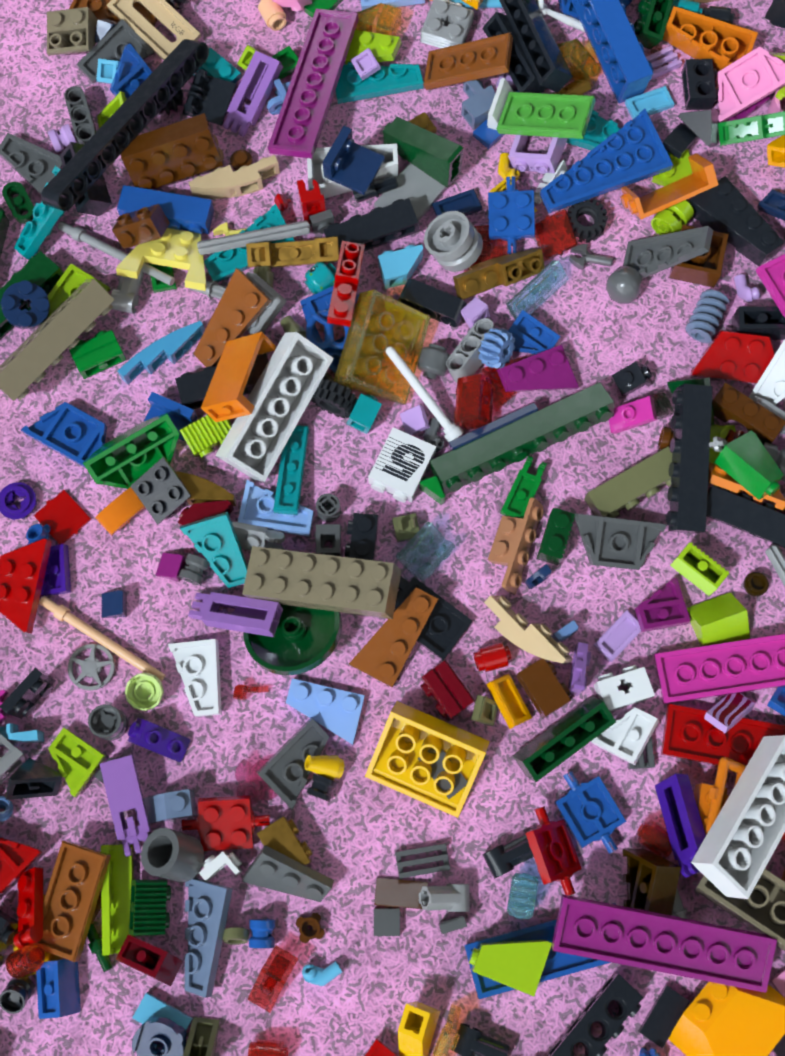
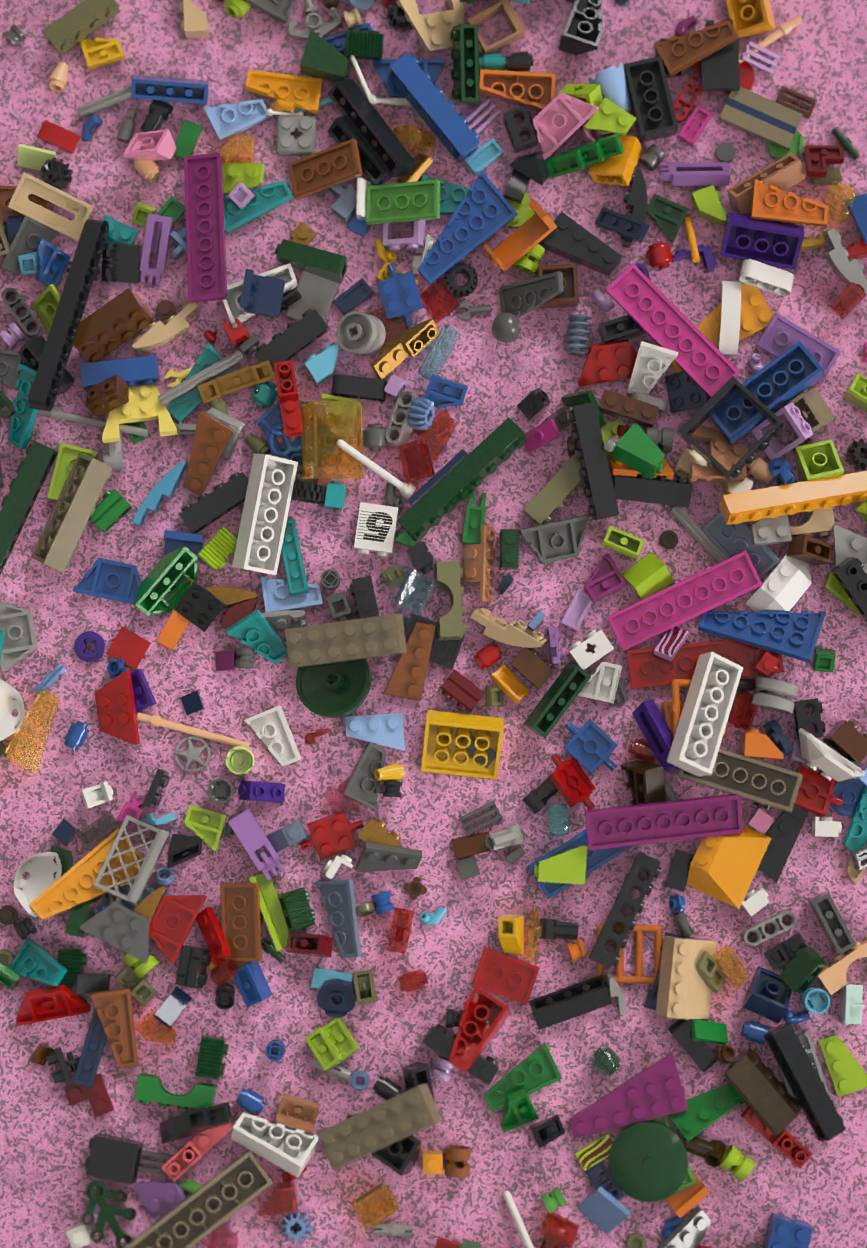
camera: 20 degrees left, 10 degrees up
(23, 318) = (30, 495): dark blue plate -> none
(172, 855) = (302, 869): dark grey piece -> none
(225, 393) = (226, 501): orange panel -> none
(249, 616) = (297, 681): medium lavender hinge -> none
(414, 420) = (374, 489): lavender tile -> none
(445, 512) = (421, 558): none -> black brick
(457, 603) = (448, 577): none -> olive arch
(541, 371) = (460, 421): magenta wing -> none

